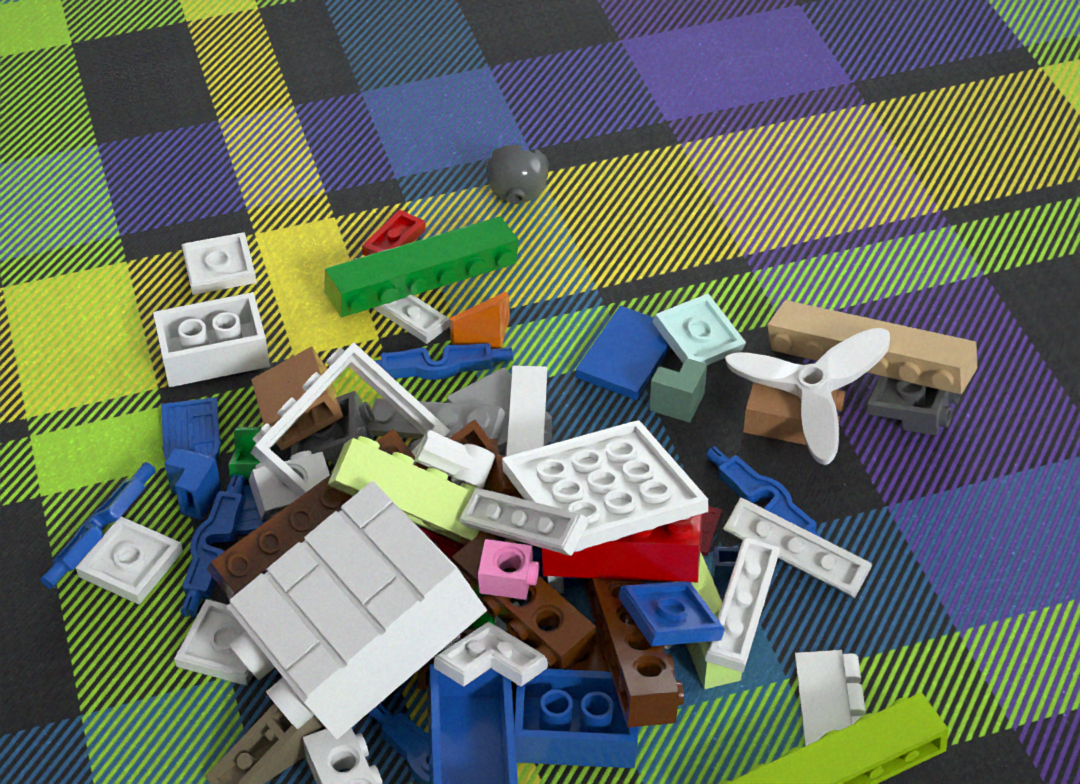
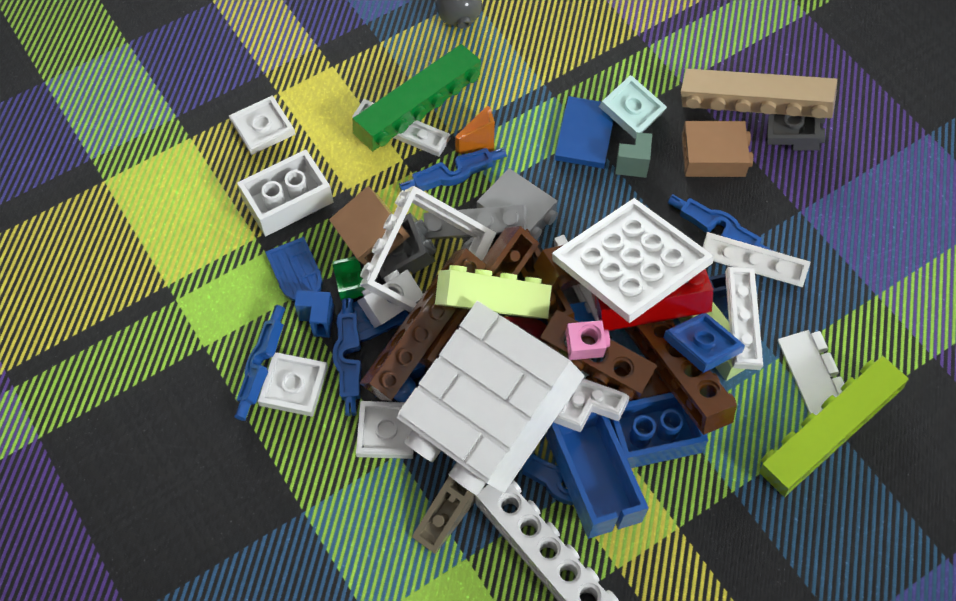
camera: 15 degrees left, 15 degrees up
(397, 231) = (385, 75): red plate -> none
(461, 462) = (522, 261): white piece -> none
(524, 521) = (591, 303): white tile -> none
(527, 409) = (541, 206): white tile -> none
(815, 383) = (740, 150): white piece -> none

